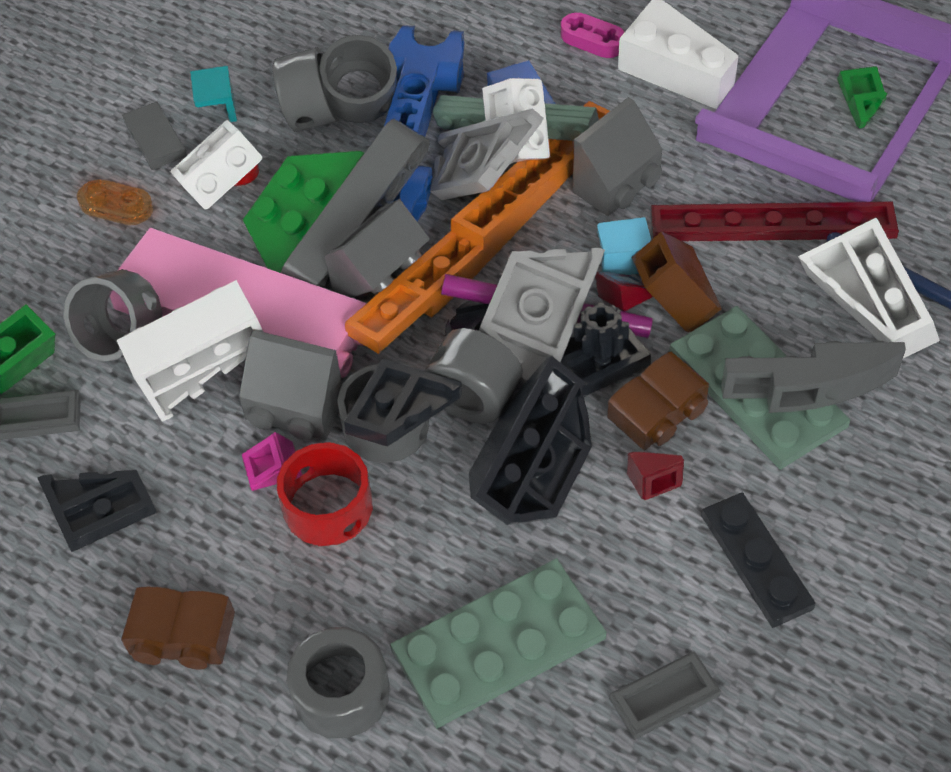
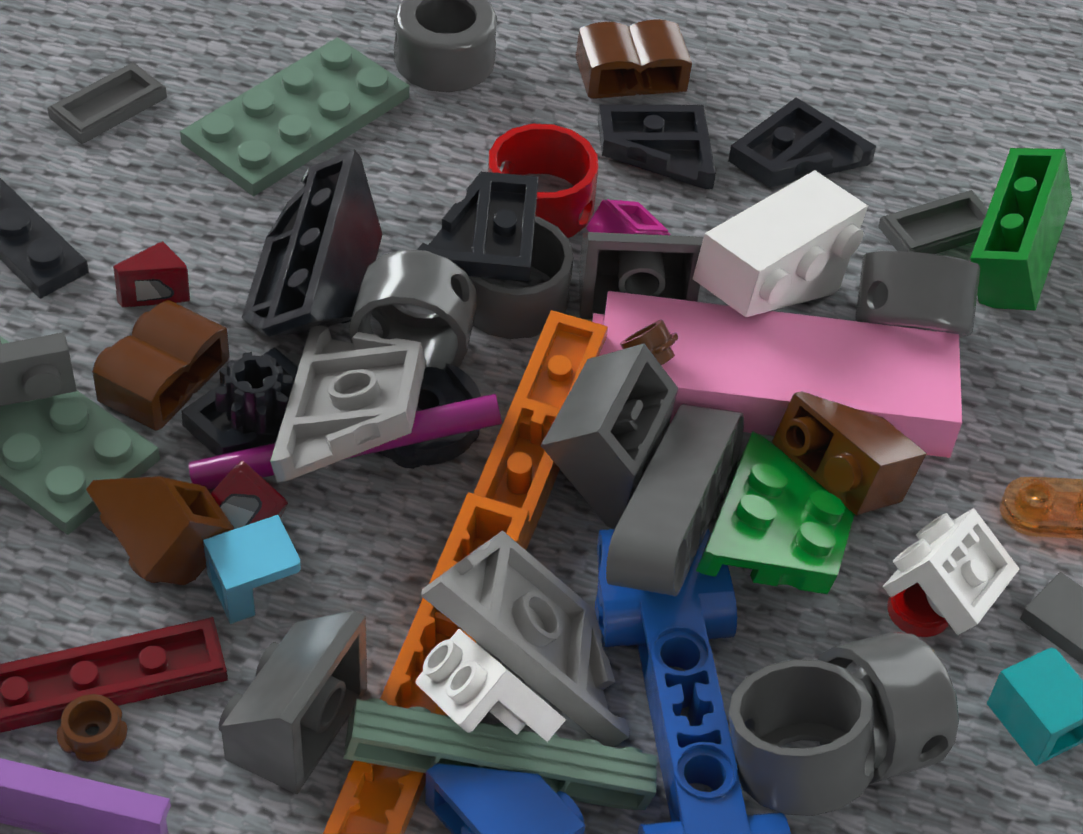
camera: 155 degrees right, 5 degrees down
(202, 535) = (659, 140): none -> black wing
(227, 228) = (849, 452): none -> reddish brown slope
(327, 304) = (657, 340): none -> reddish brown plate
(731, 189) = (89, 712): none -> reddish brown plate

